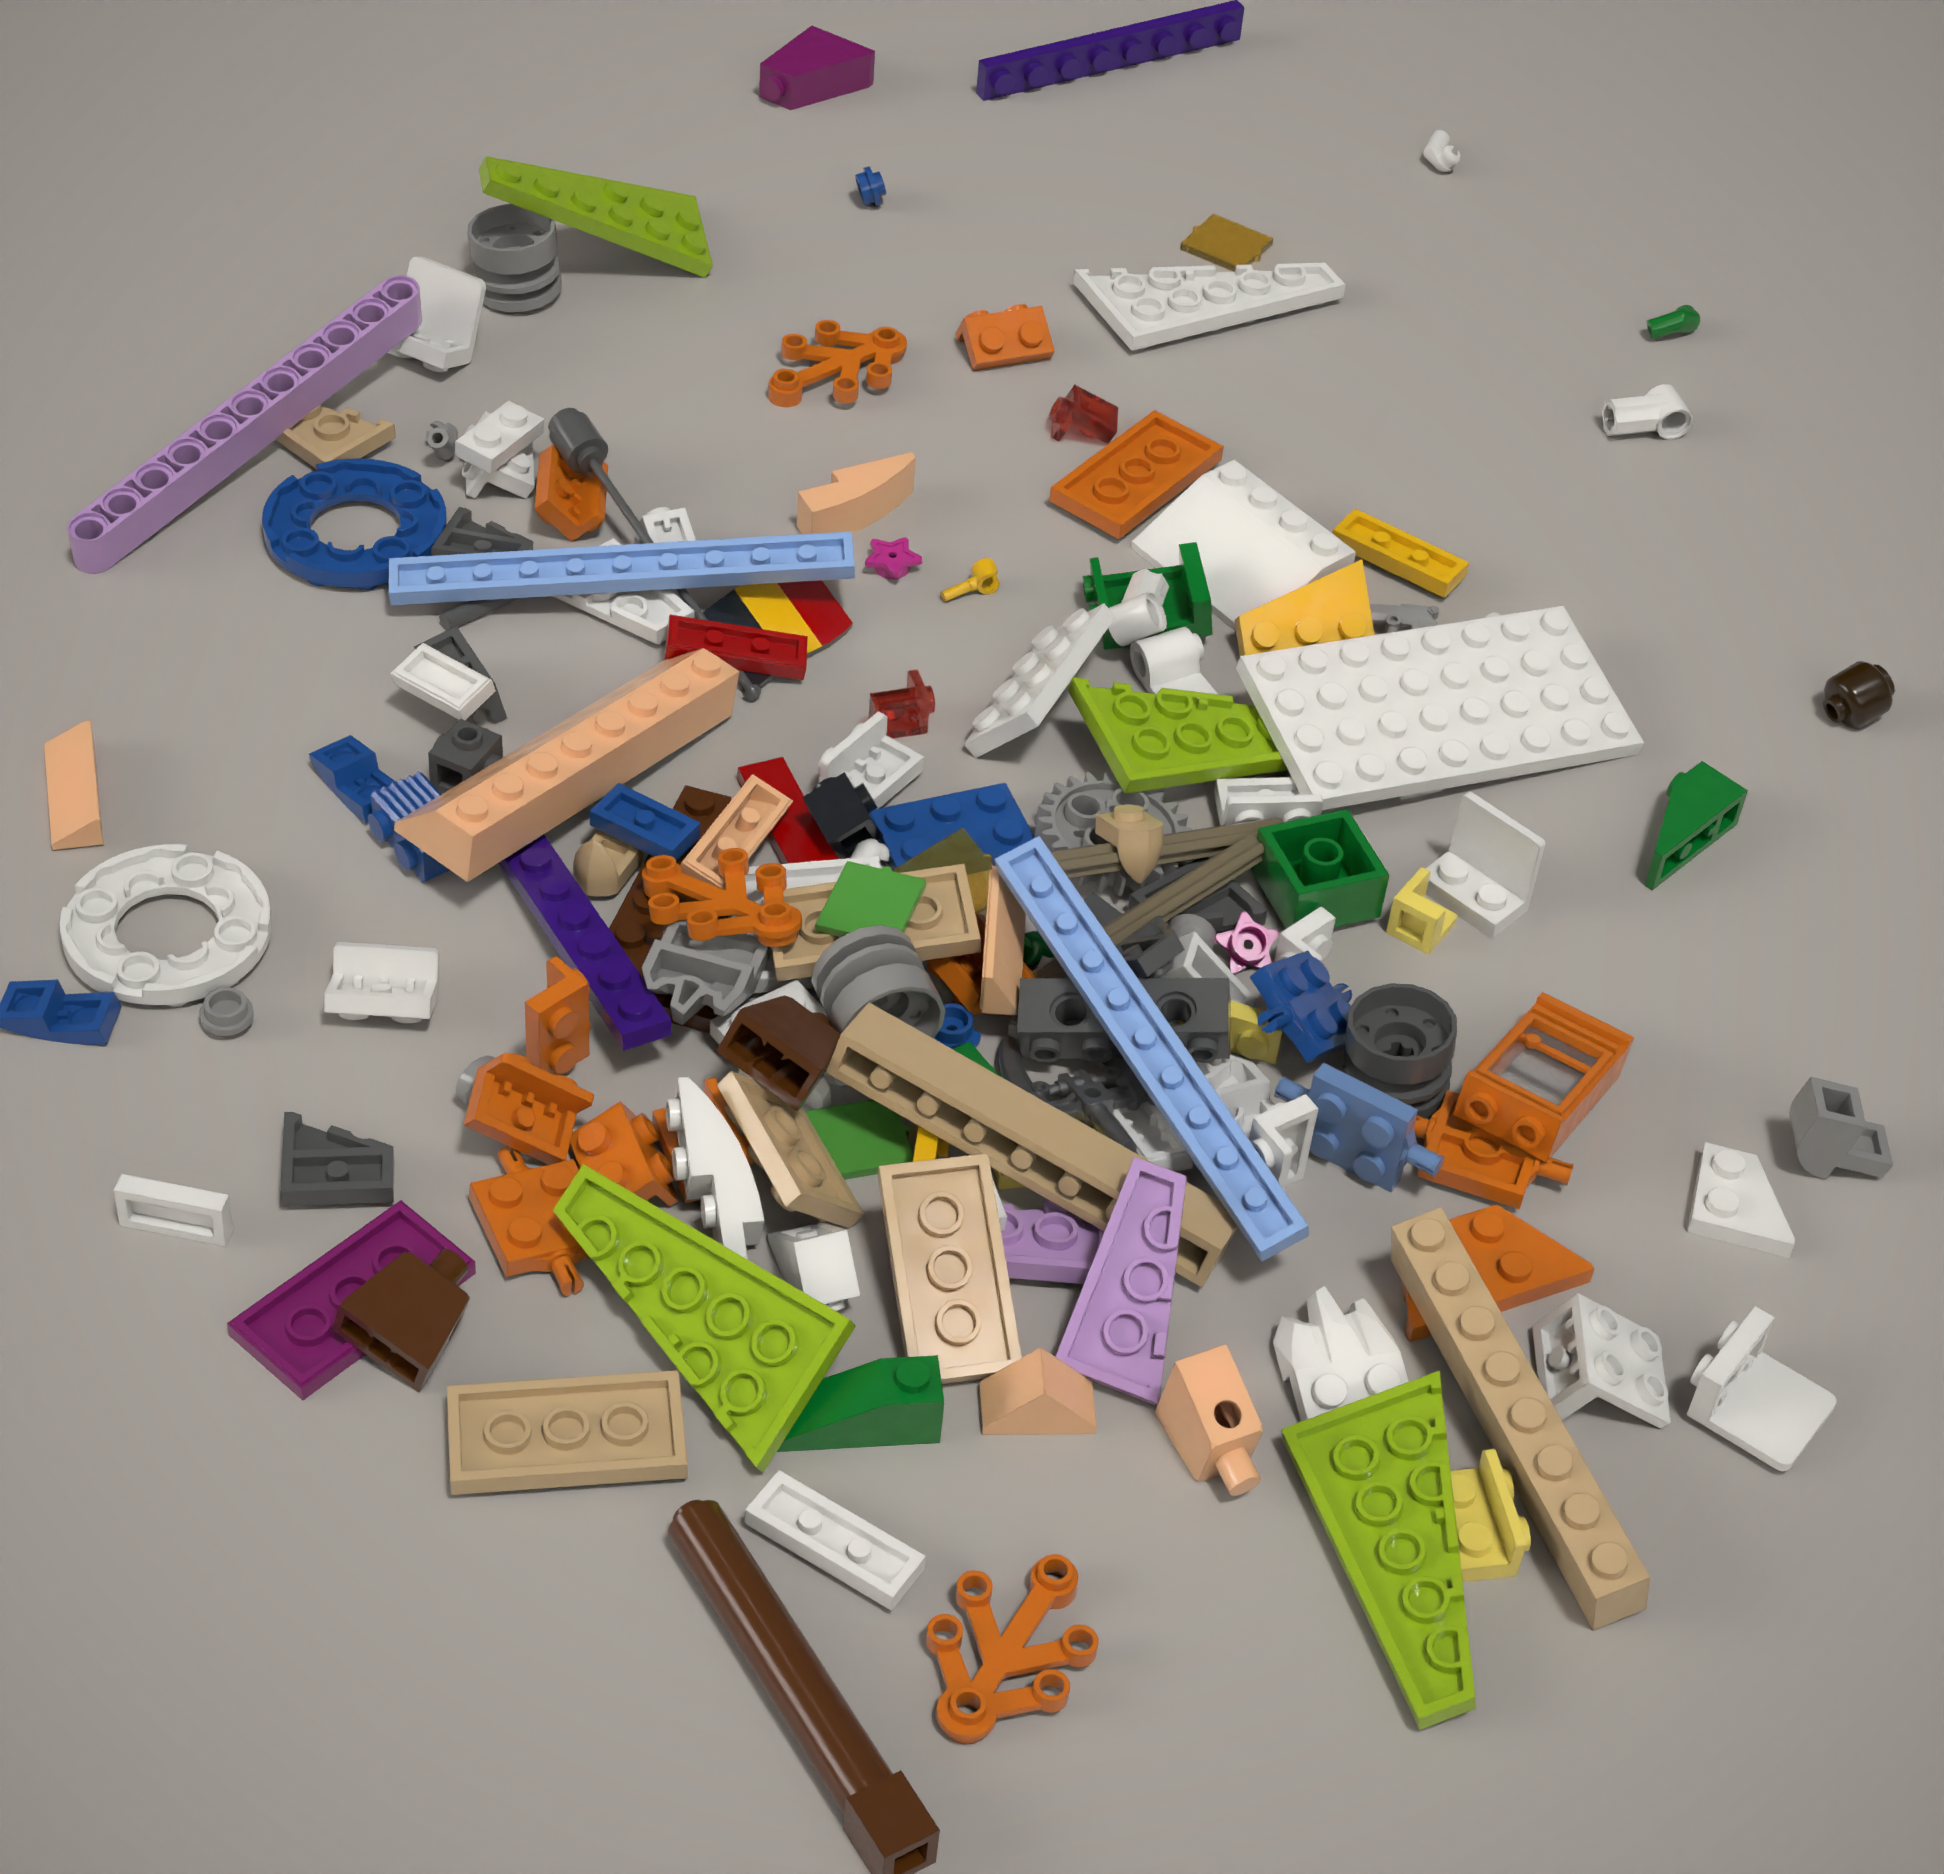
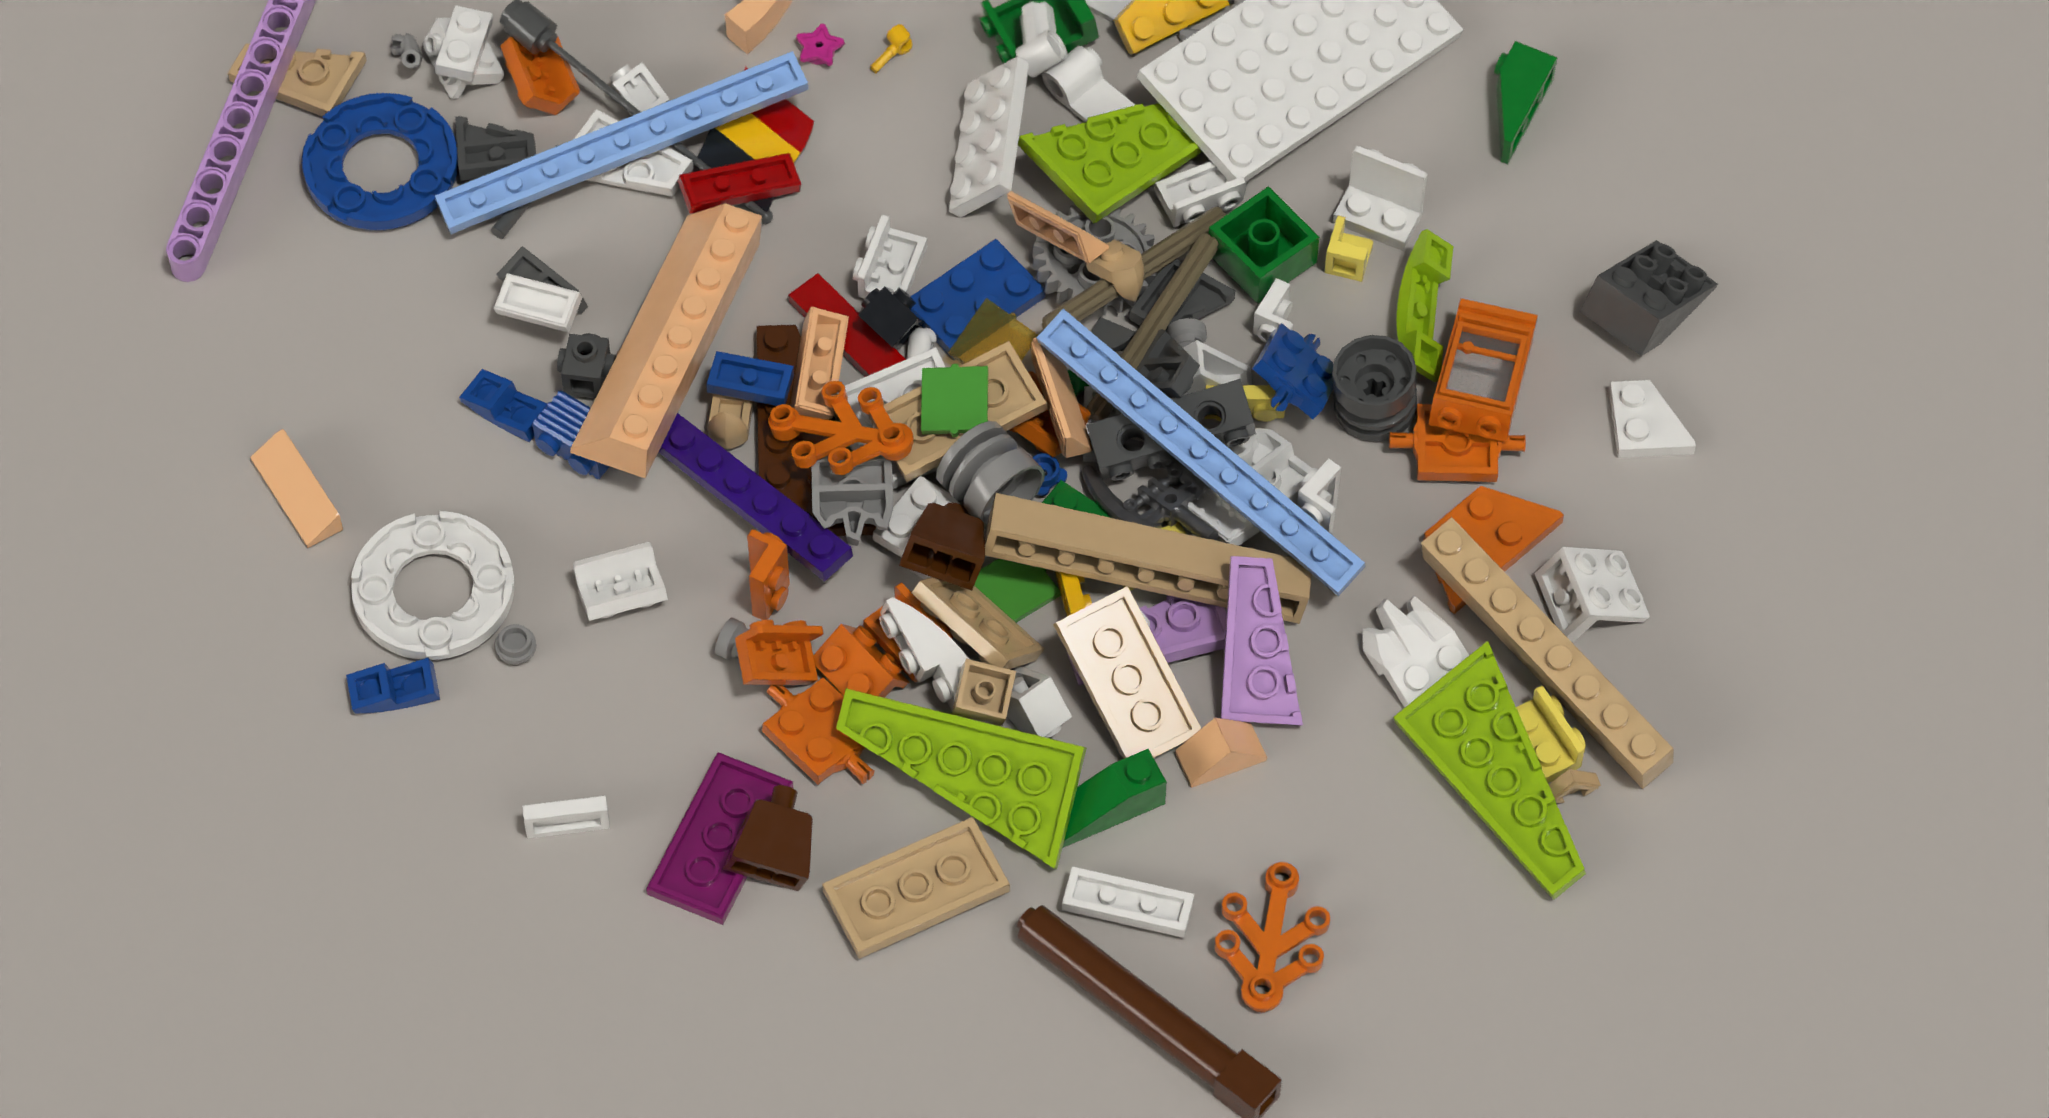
camera: 15 degrees left, 15 degrees up
(333, 1166) = (657, 742): dark grey wing -> none
(753, 1219) = (984, 692): none -> tan piece
(906, 707) = (893, 198): clear red bracket -> none
(1074, 774) = (1055, 229): none -> light nougat slope
(1212, 1419) = (1347, 730): light nougat torso -> none
(1249, 931) = (1240, 321): plate -> none
(1362, 1128) = (1369, 462): medium blue plate -> none
(1492, 979) = (1417, 301): none -> lime slope
(1497, 1586) = (1572, 782): none -> tan tile
(1757, 1398) = (1705, 578): white bracket -> none
(1769, 1057) = (1647, 296): none -> dark grey slope
(1834, 1133) = (1702, 346): light grey brick -> none

